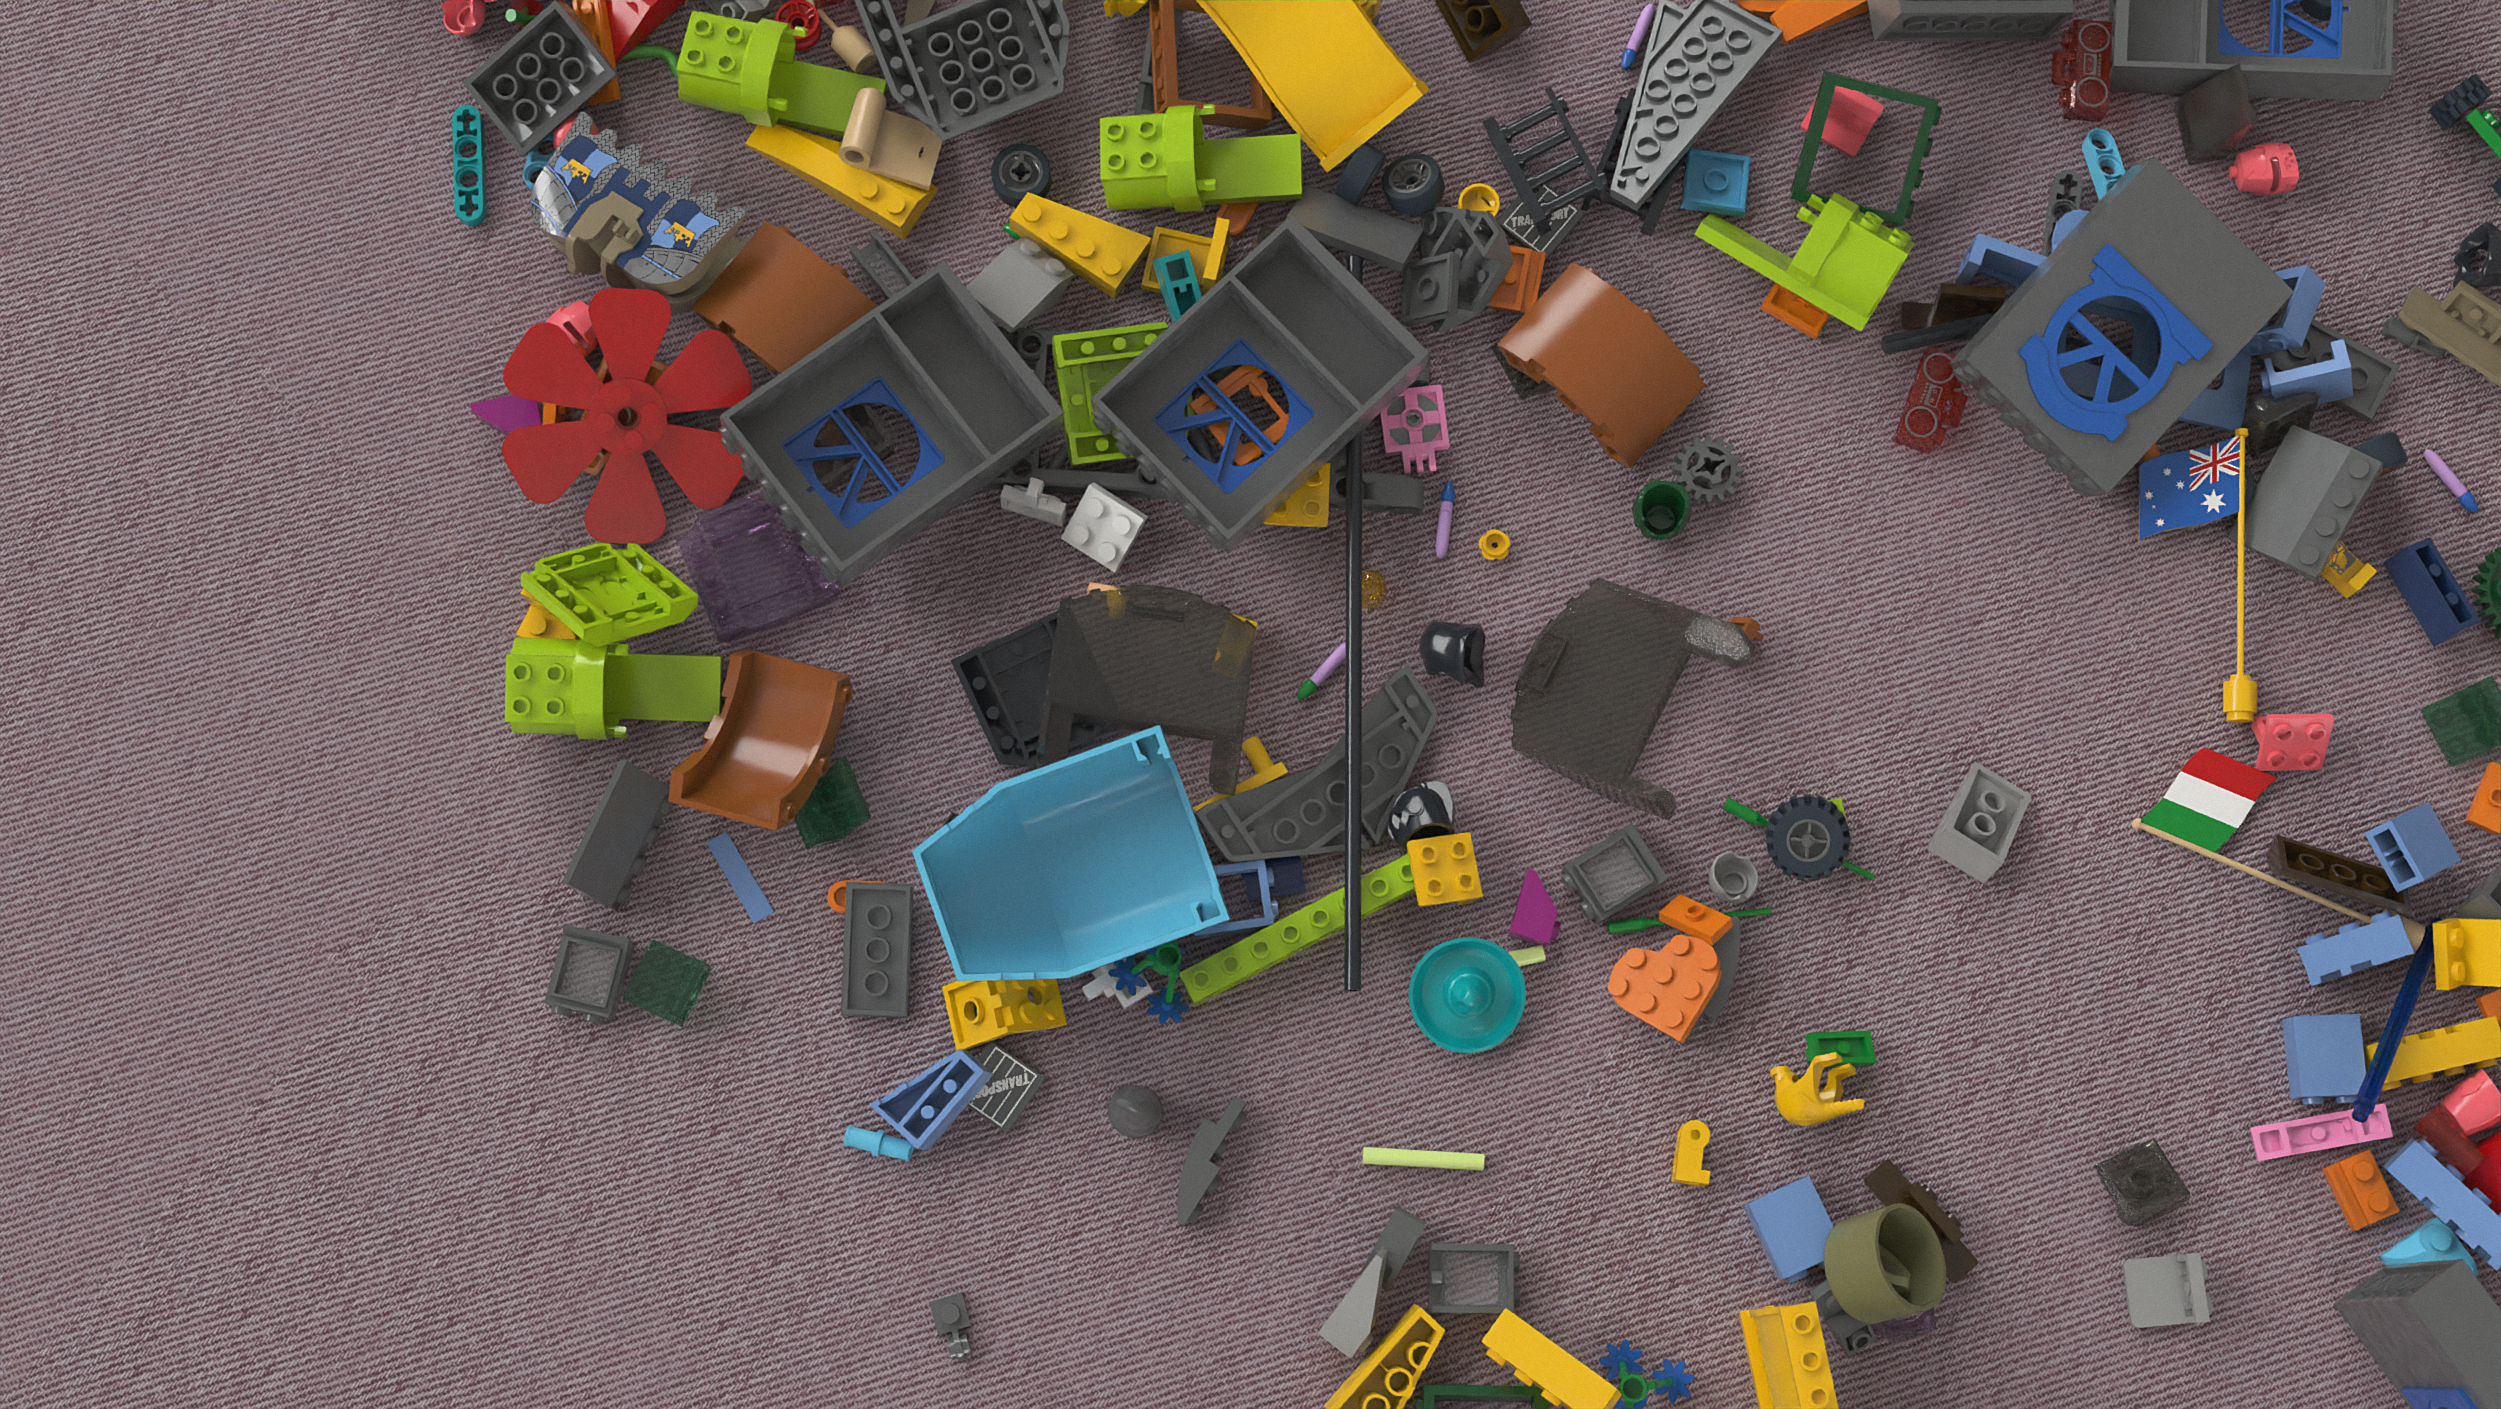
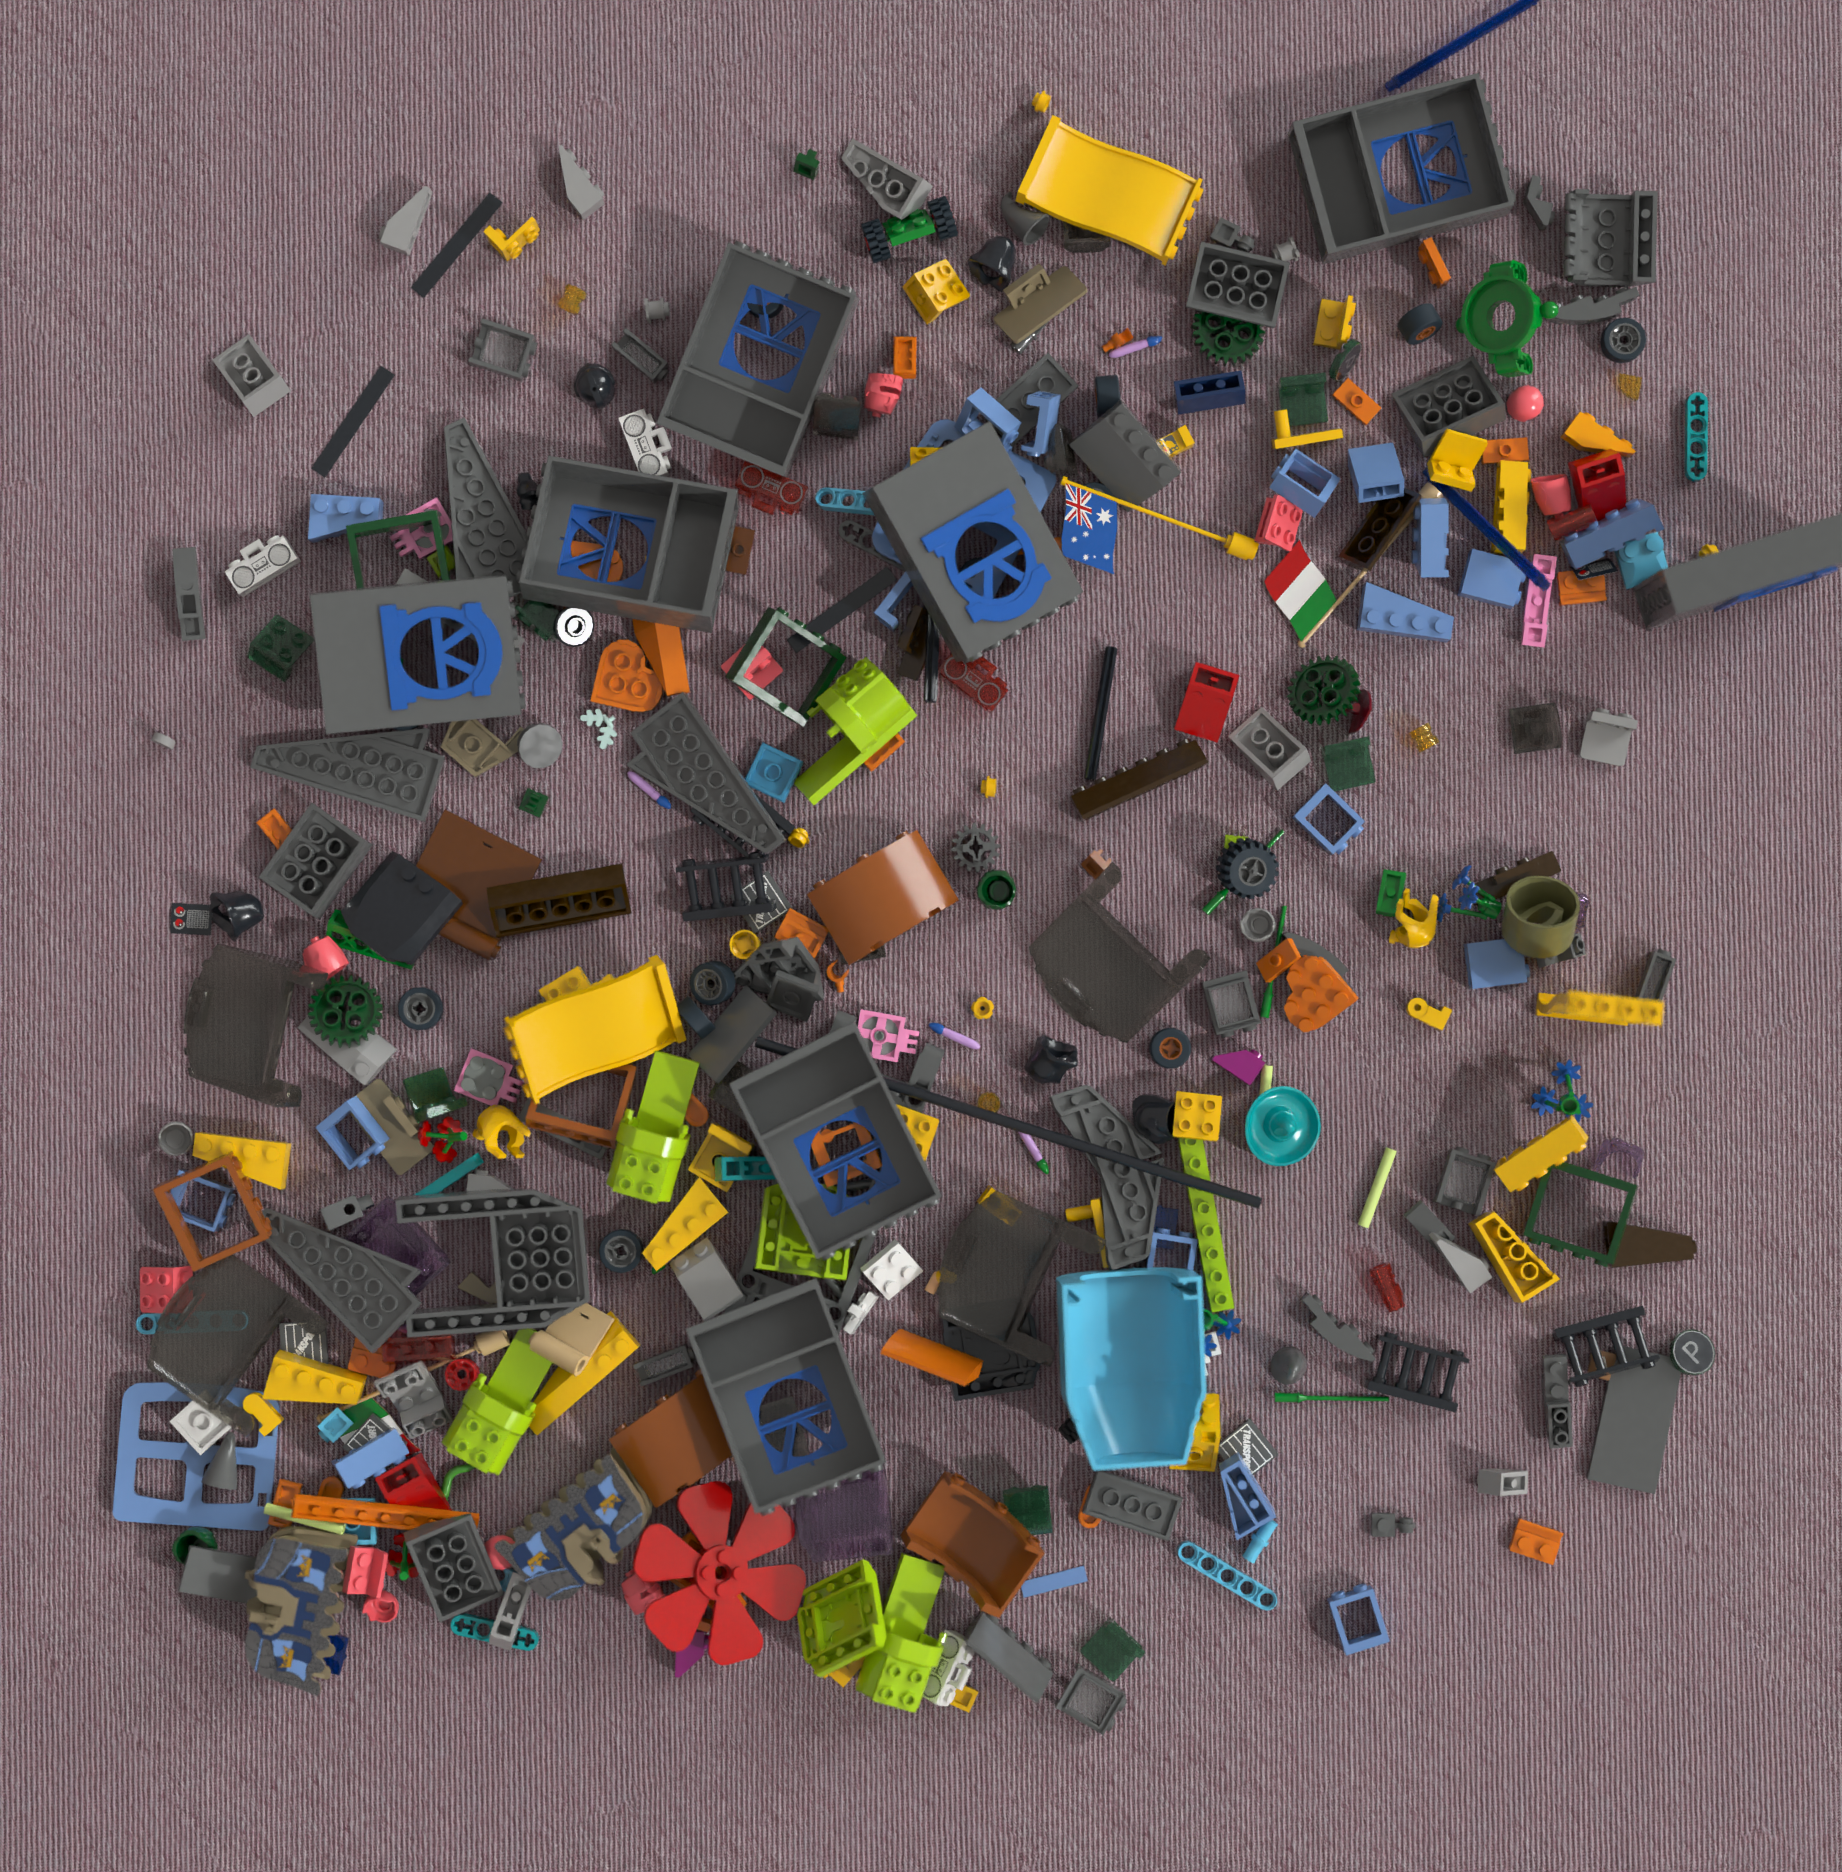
camera: 70 degrees left, 10 degrees up
(493, 169) = (510, 1613): none -> light grey slope
(546, 798) = (965, 1698): none -> yellow plate
(575, 762) = (951, 1670): none -> white piece
(775, 1335) = (1366, 1641): none -> medium blue window
(812, 1096) = (1215, 1574): none -> medium azure beam
(1001, 610) = (932, 1357): none -> orange slope
(1094, 1138) = (1297, 1397): none -> green piece
(1153, 1312) = (1423, 1393): none -> black fence
(1285, 1218) = (1388, 1288): none -> clear red axle
(1469, 347) = (839, 980): none -> orange piece
(1530, 801) = (1173, 1054): none -> black wheel
(1641, 240) = (799, 838): none -> yellow plate
(1794, 464) = (988, 787): none -> yellow plate
(1871, 1190) = (1487, 906): none -> plant
(1873, 656) = (1138, 780): none -> dark brown slope
(1926, 903) = (1353, 831): none -> medium blue window
(1945, 582) = (1100, 713): none -> black axle
(1954, 205) = (844, 607): none -> black sticker
(1988, 57) = (740, 550): none -> reddish brown plate
(1999, 936) = (1348, 764): none -> clear green bracket
(2014, 715) = (1206, 702): none -> red slope
(2071, 1030) = (1424, 737): none -> clear yellow wheel
(2078, 915) = (1360, 711): none -> dark red shield
(2089, 866) = (1305, 690): none -> dark green gear
(2226, 947) = (1399, 616): none -> medium blue wedge
(2322, 186) = (904, 357): none -> orange plate
(2377, 757) = (1311, 473): none -> medium blue window
(2393, 1198) = (1595, 569): none -> black sticker
(2406, 716) = (1285, 439): none -> yellow piece
(2426, 199) = (935, 290): none -> yellow bracket
(2449, 455) = (1118, 340): none -> orange piece

